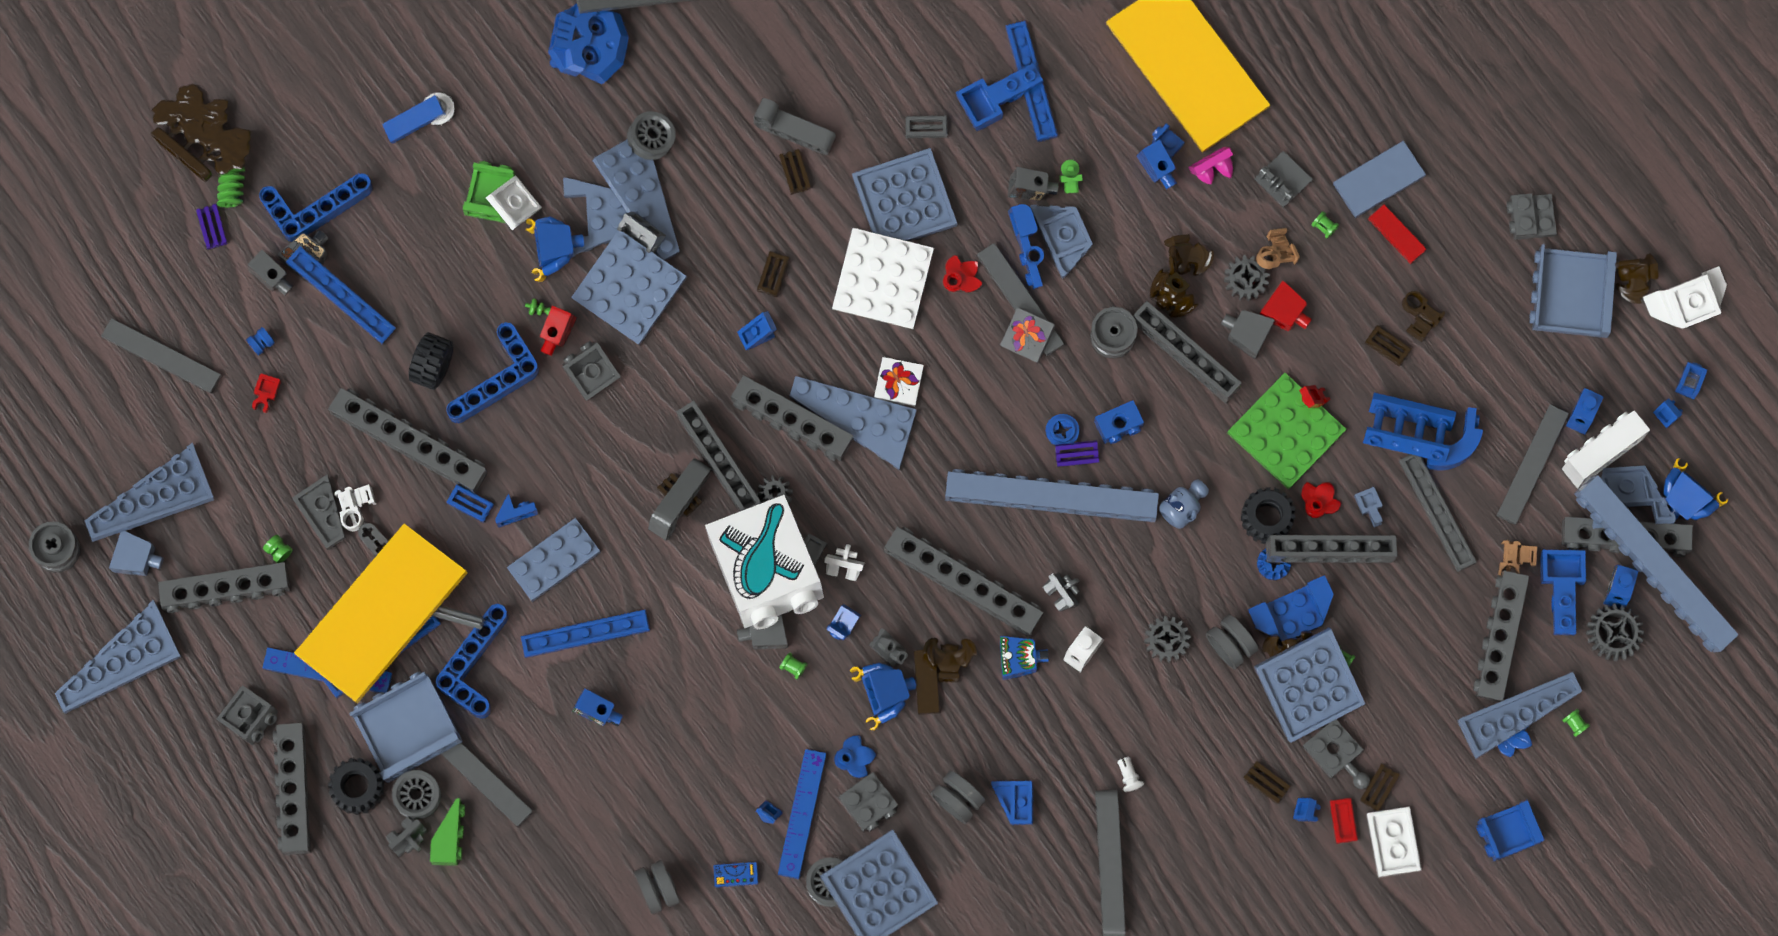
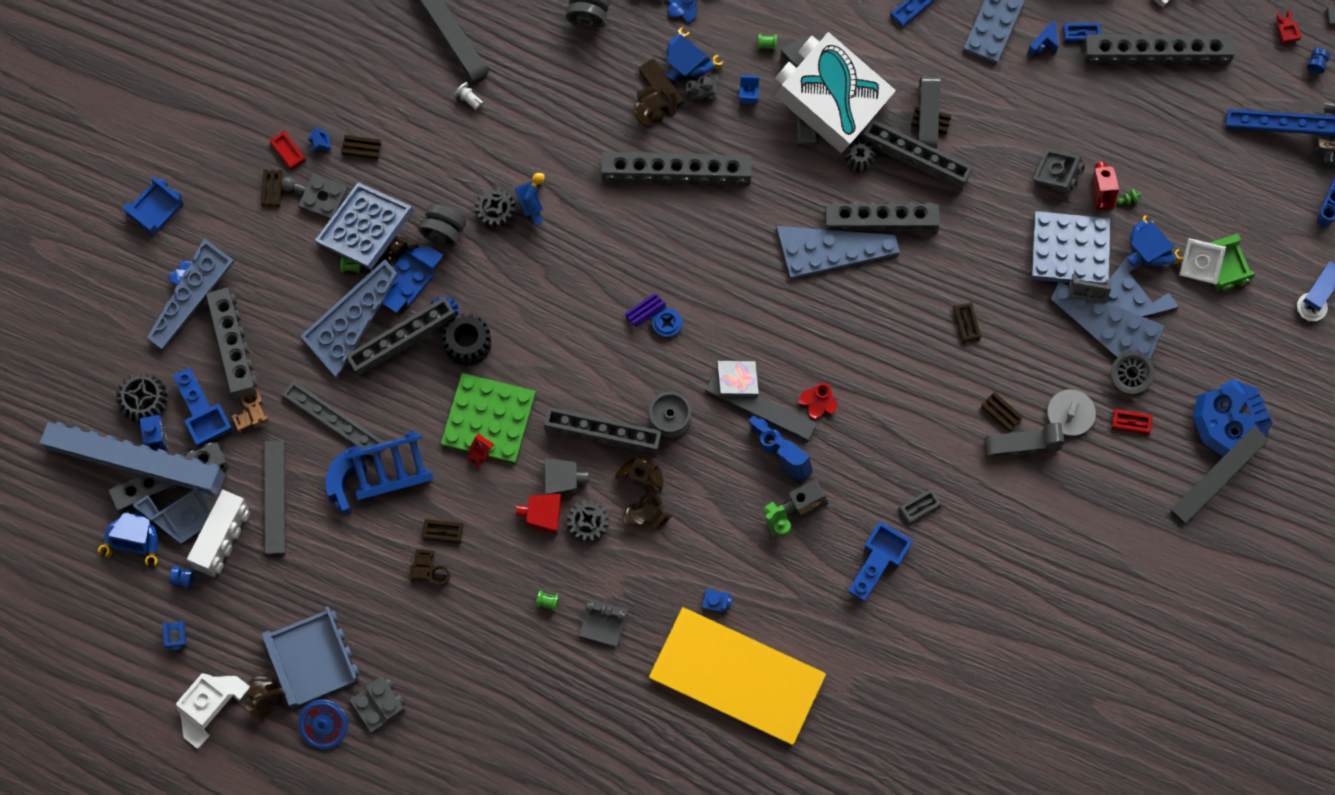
camera: 150 degrees right, 5 degrees down
(430, 361) = (1182, 106): black tyre -> none
(497, 380) = (1119, 126): blue beam -> none
(692, 107) = (1115, 420): none -> red tile
(730, 134) = (1073, 411): none -> light grey shield
(757, 331) = (949, 269): blue slope -> none
(853, 566) = (774, 134): white hips -> none
(883, 278) = (878, 362): white plate -> none
(898, 381) = (817, 292): white tile -> none
(905, 197) = (901, 435): sand blue plate -> none
(1016, 800) = (543, 36): blue wing -> none
(1020, 657) = (601, 136): torso -> none
(1035, 97) = (843, 578): blue tile -> none
(1051, 496) = (645, 265): sand blue brick -> none
(1055, 584) = (594, 202): hips -> none
(1063, 235) = (756, 476): sand blue wing -> none
(1083, 649) = (554, 164): white torso -> none
(1127, 413) = (620, 360): blue brick -> none
(1129, 625) = (529, 199): none -> blue torso
(1152, 157) = (713, 573): blue torso -> none
(1183, 504) = (538, 311): sand blue piece -> none
(1220, 159) = (666, 608): dark pink tile -> none
(1279, 251) = (571, 558): medium nougat piece -> none
(1321, 497) = (433, 380): red plate -> none
(1369, 503) = (390, 394): sand blue plate -> none
(1379, 179) = (523, 667): sand blue tile -> none
(1384, 594) = (346, 322): none -> sand blue wing
(1393, 841) = (240, 155): white tile -> none
(1397, 234) = (483, 628): red tile -> none
(1576, 722) = (140, 312): bright green bush -> none
(1584, 409) = (252, 560): blue torso -> none
(1592, 222) = (323, 724): none -> blue shield
(1655, 428) = (181, 577): none -> blue wheel
(1668, 413) = (181, 596): blue tile -> none

